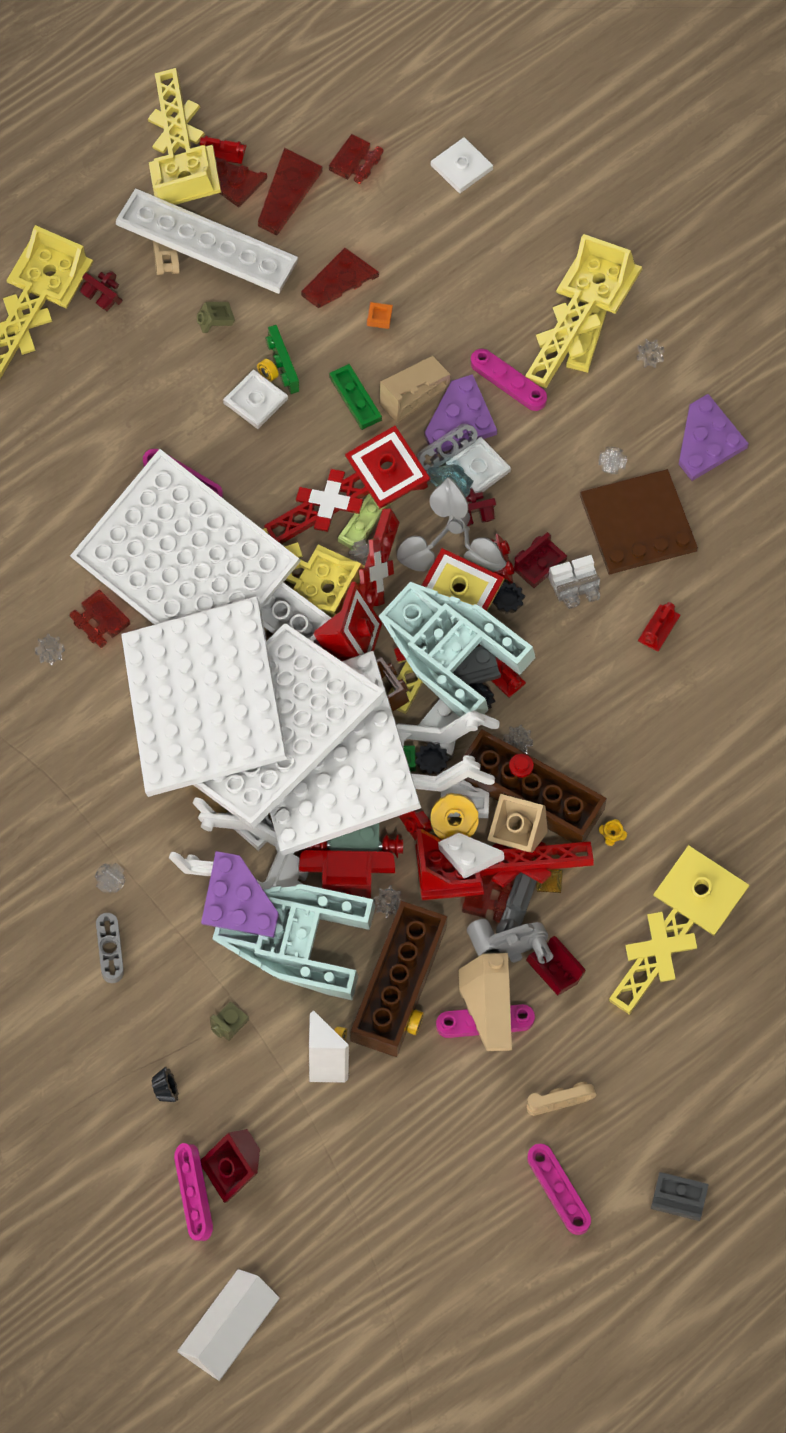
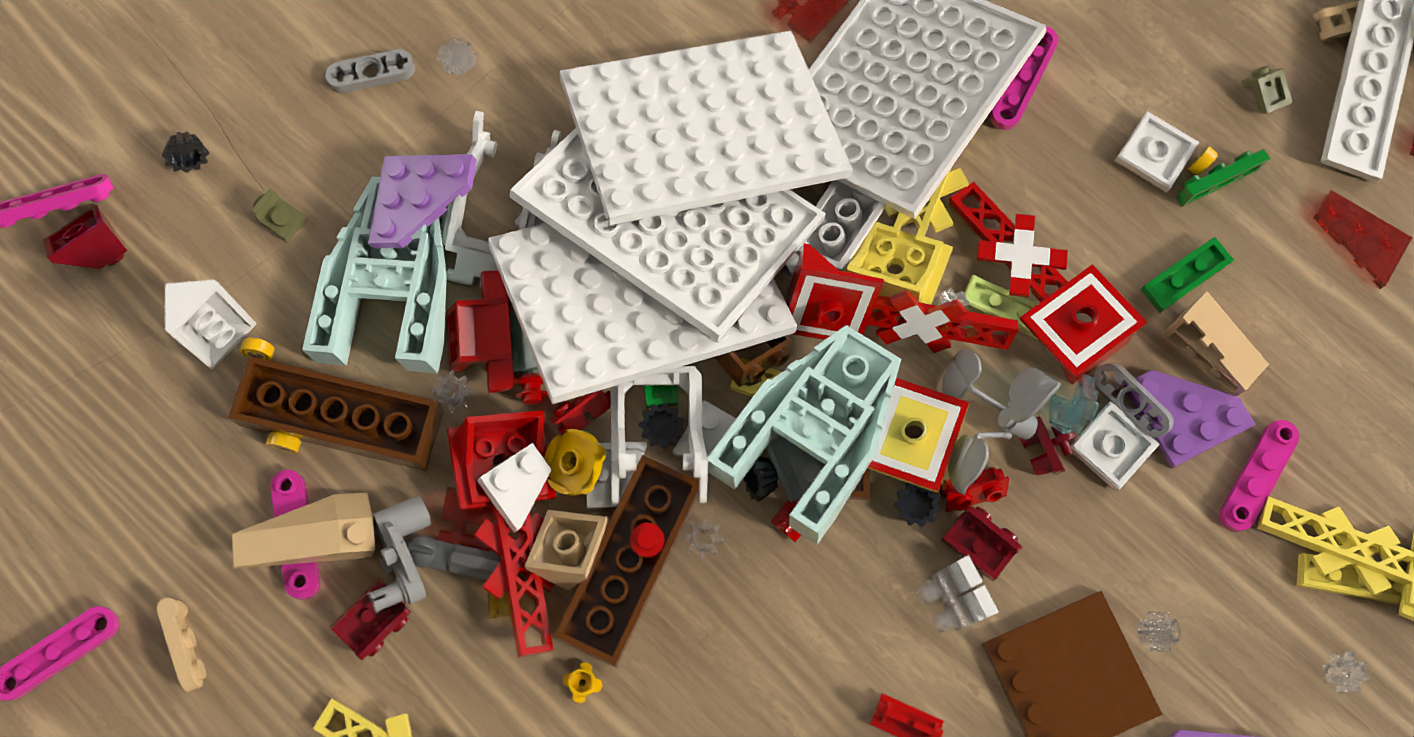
camera: 80 degrees right, 10 degrees up
(379, 315) = (1318, 293): orange plate -> none

